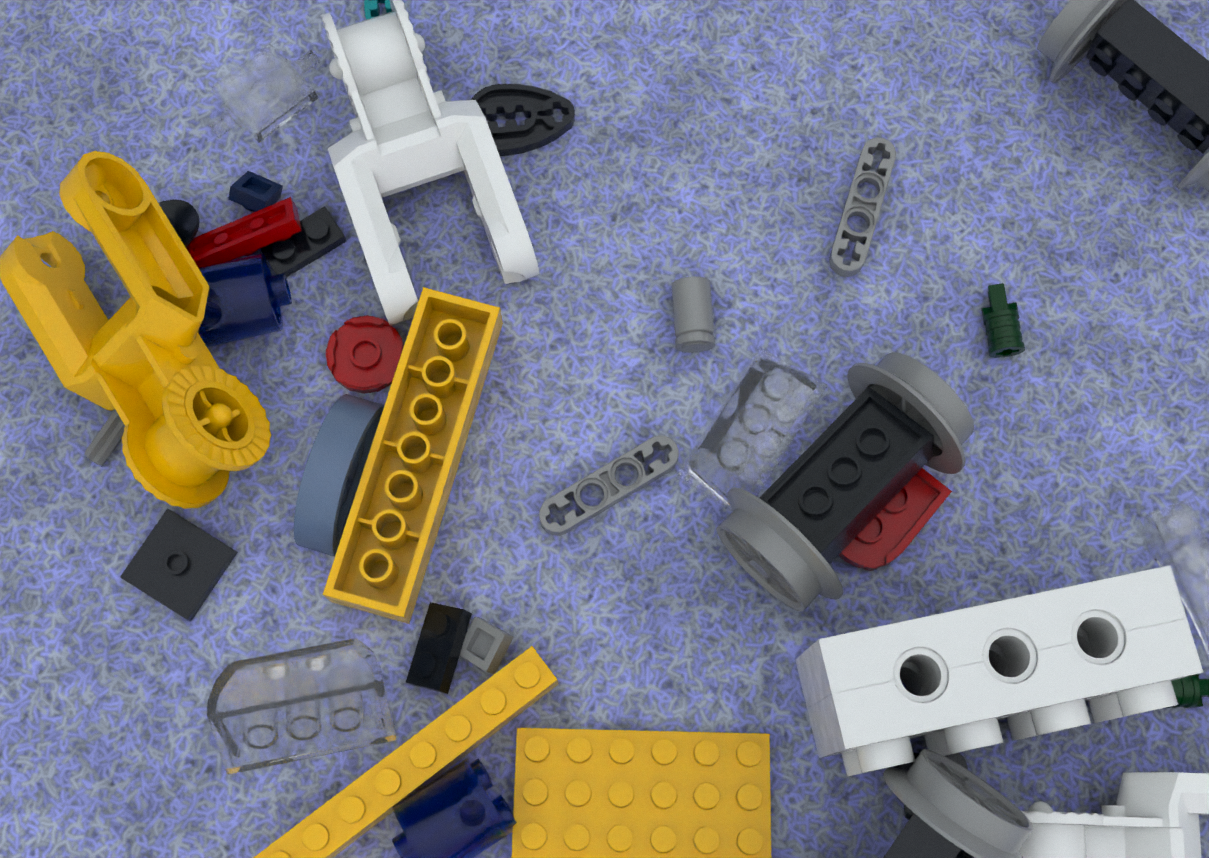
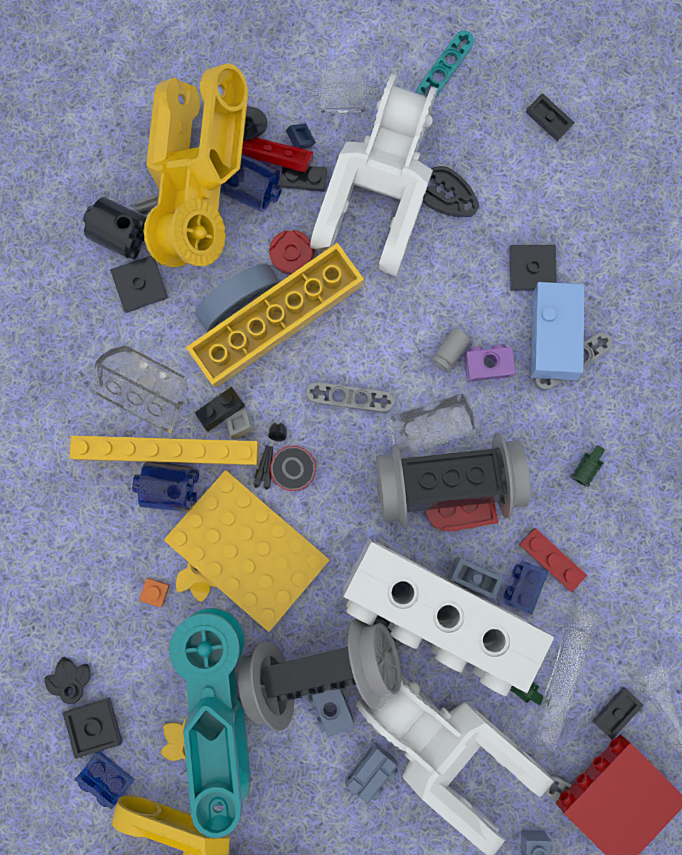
camera: 40 degrees right, 10 degrees up
(84, 509) = (115, 227): none -> black cylinder
(555, 610) = (277, 432): none -> black hinge
(573, 684) = (264, 471): none -> black piece
(611, 647) = (293, 468): none -> black tile
(708, 129) = (531, 265): none -> black plate
(750, 313) = (503, 363): none -> medium lavender brick
(812, 181) = (557, 331): none -> light blue brick
(987, 584) = (475, 578): none -> sand blue brick
(1060, 548) = (525, 587): none -> clear blue bracket
(1063, 484) = (552, 560): none -> red plate

